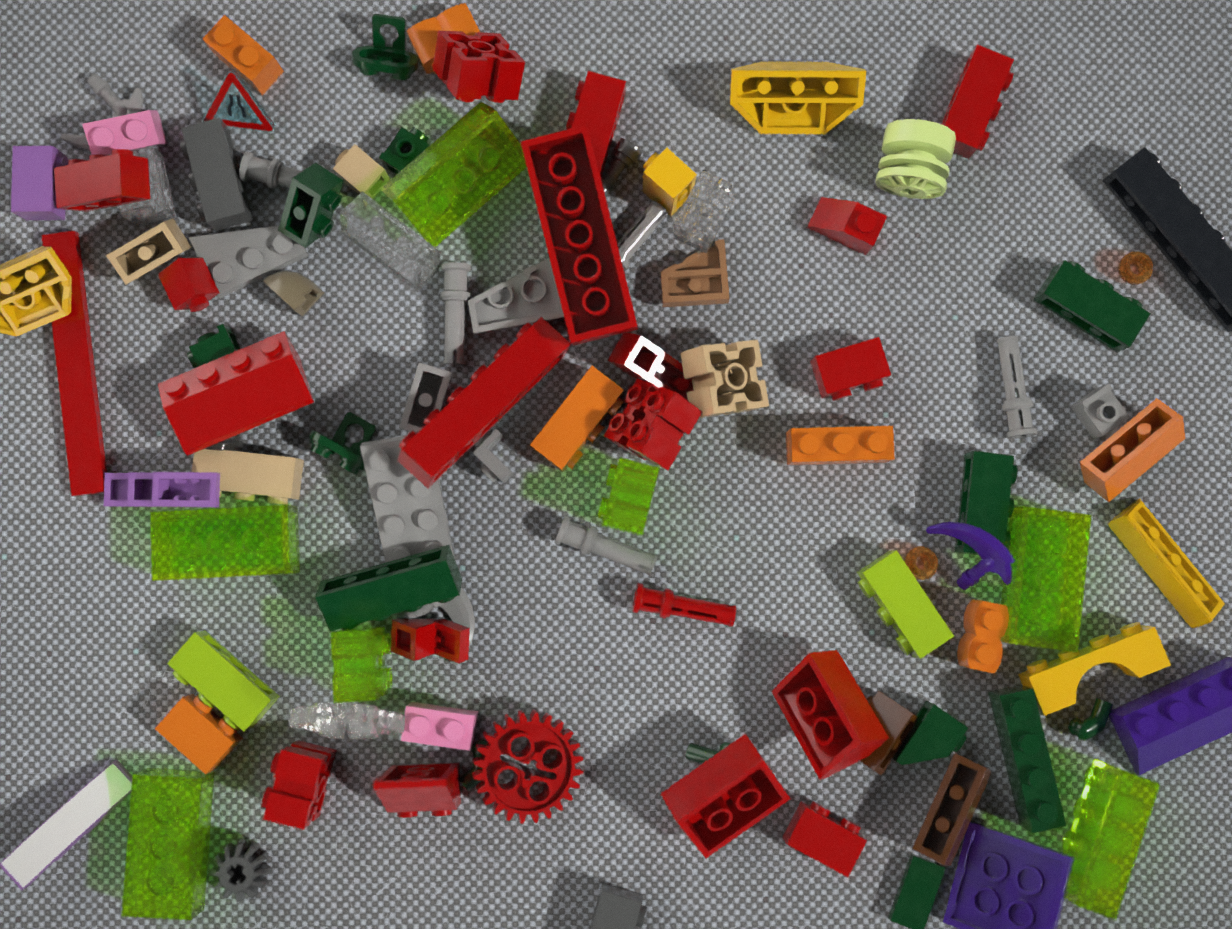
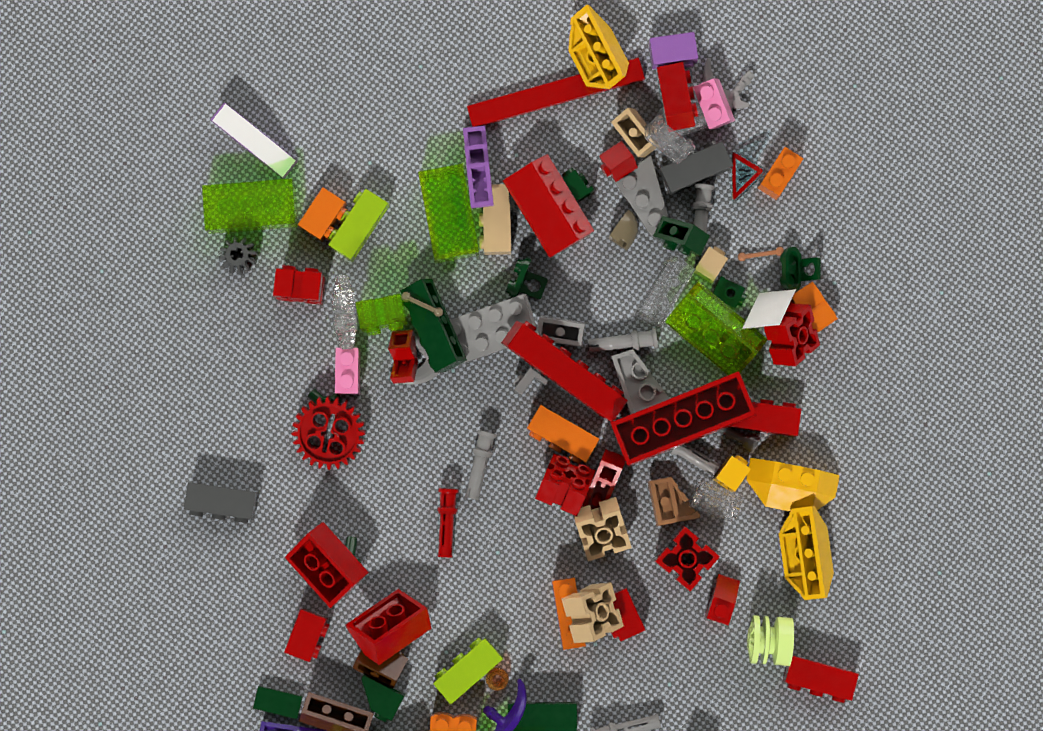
camera: 85 degrees right, 0 degrees up
(161, 200) = (668, 140): none -> clear hinge
(340, 623) = (407, 297): none -> dark tan hinge
(358, 78) = (742, 256): none -> nougat hinge
(420, 788) = (305, 365): red slope -> none
(436, 92) = (769, 309): none -> white sticker
(629, 496) = (514, 475): clear neon green brick -> none
(695, 104) = (790, 486): none -> yellow wedge
(781, 244) = (701, 558): none -> red brick
(848, 407) = (592, 612): none -> tan brick

